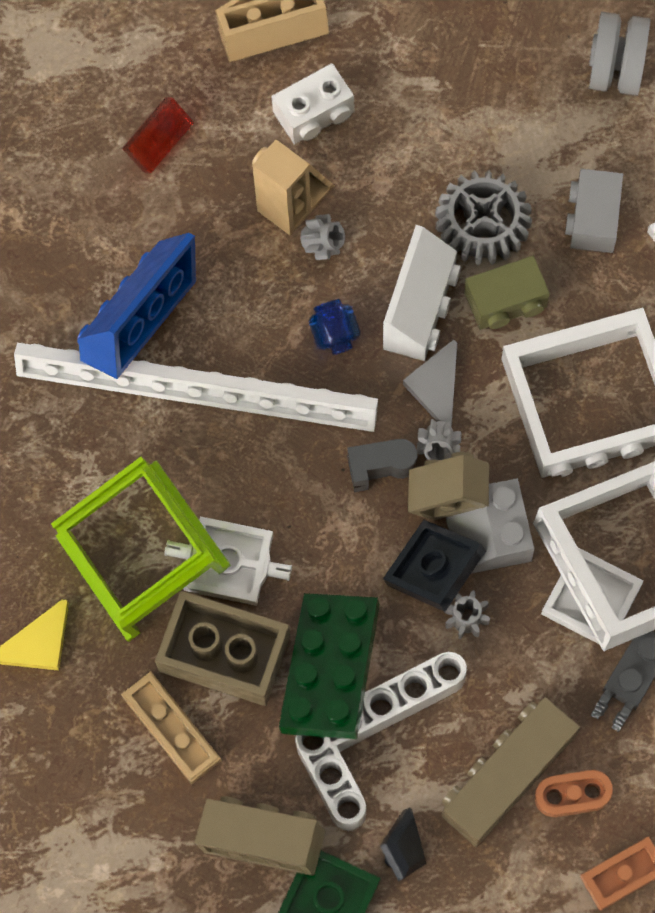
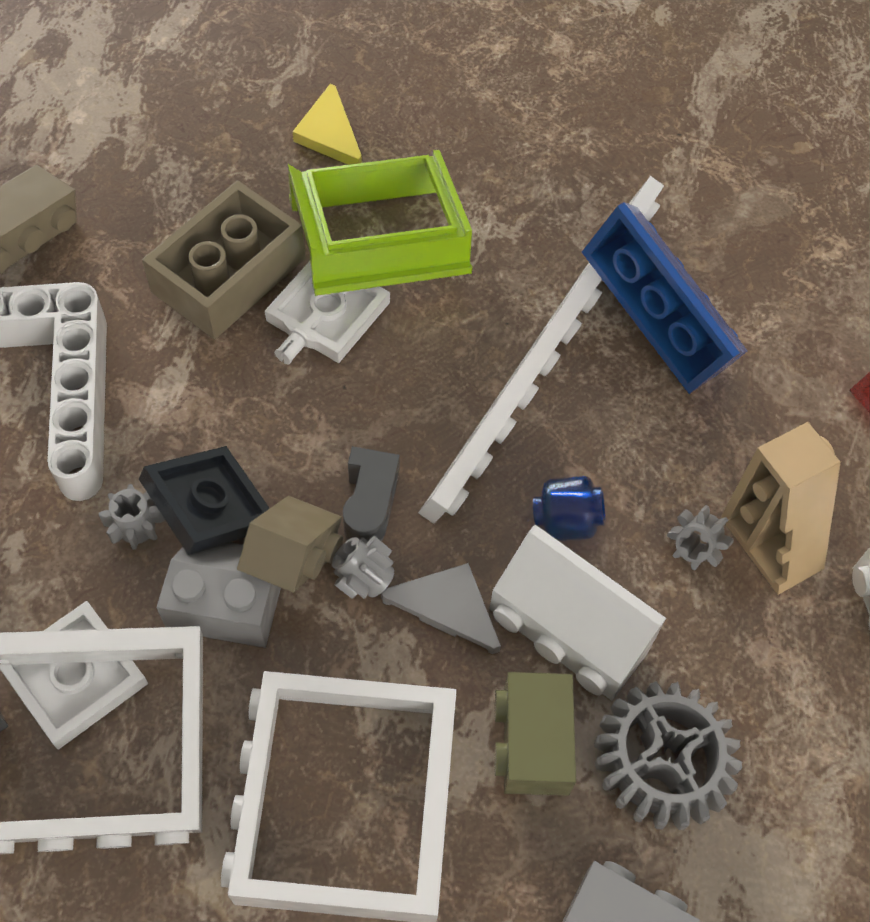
camera: 105 degrees right, 10 degrees down
(171, 727) = (166, 208): tan tile -> none
(329, 666) = (147, 346): dark green plate -> none

